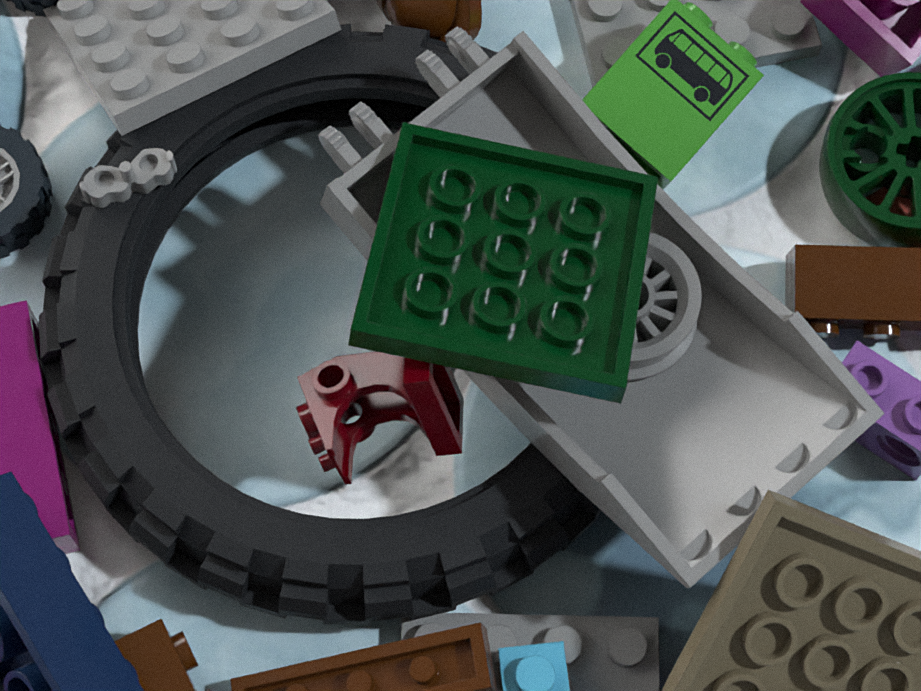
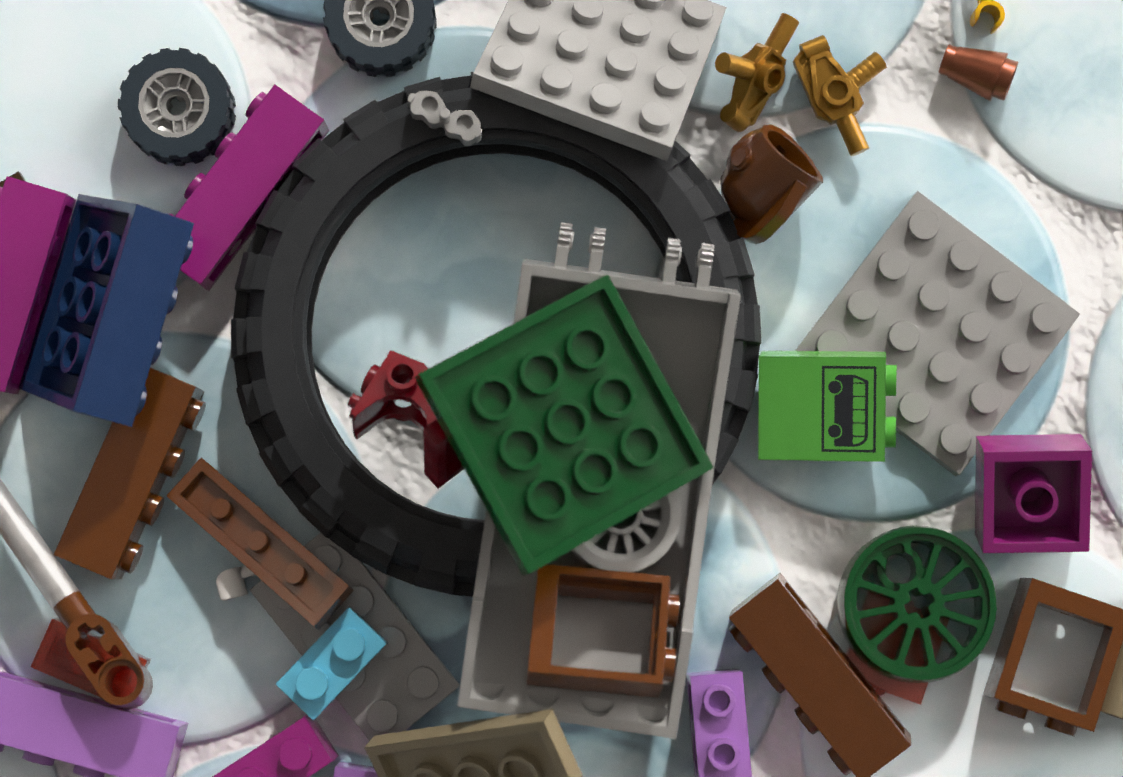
camera: 45 degrees right, 15 degrees up
(686, 449) = (607, 585): none -> reddish brown window

